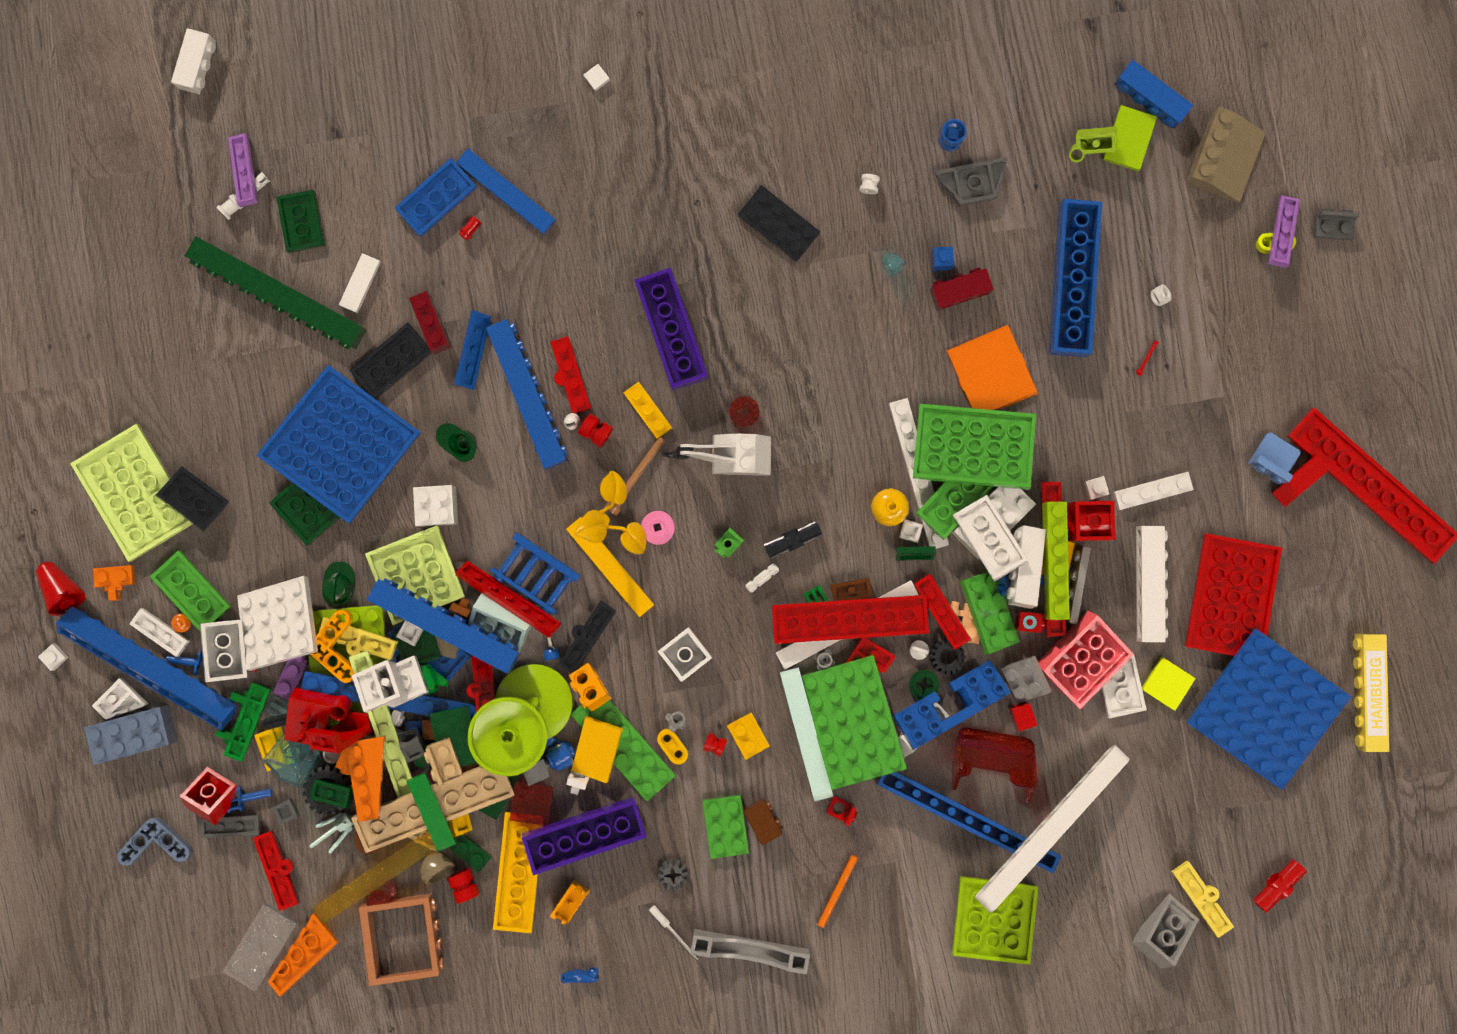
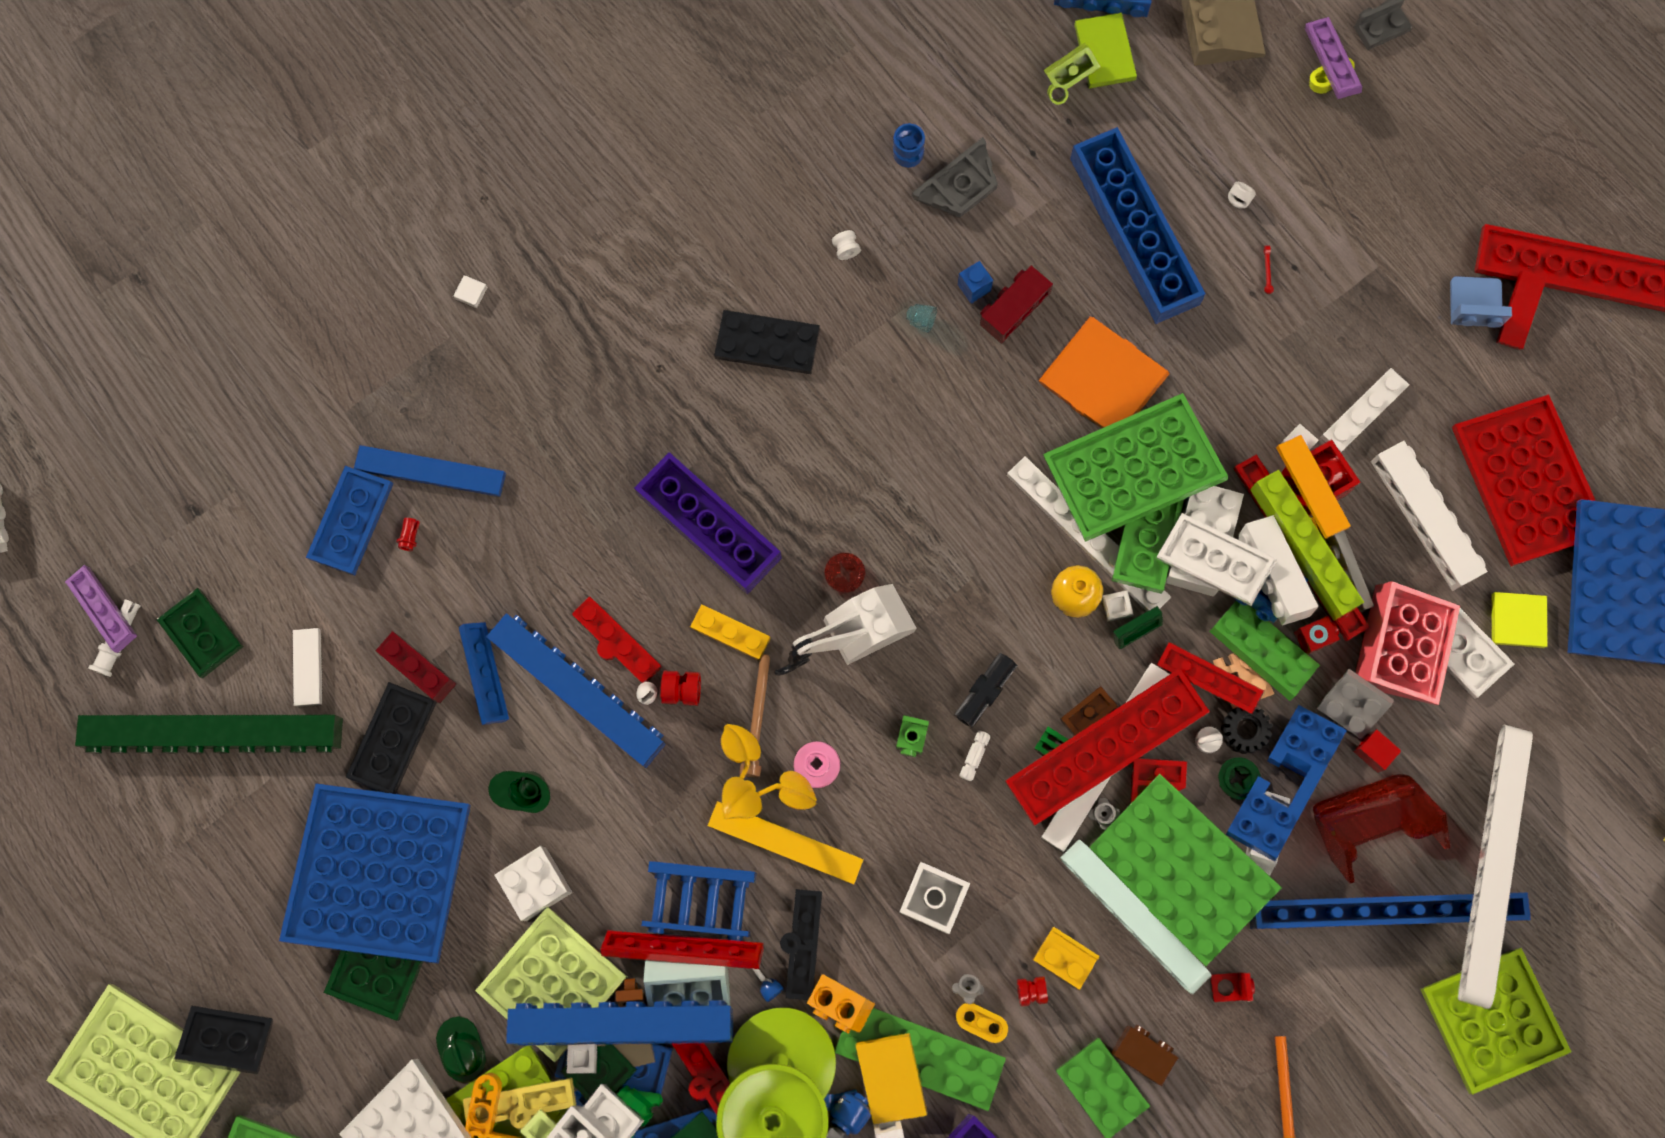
camera: 25 degrees left, 10 degrees down
(1082, 525) = (1313, 486): none -> light orange tile

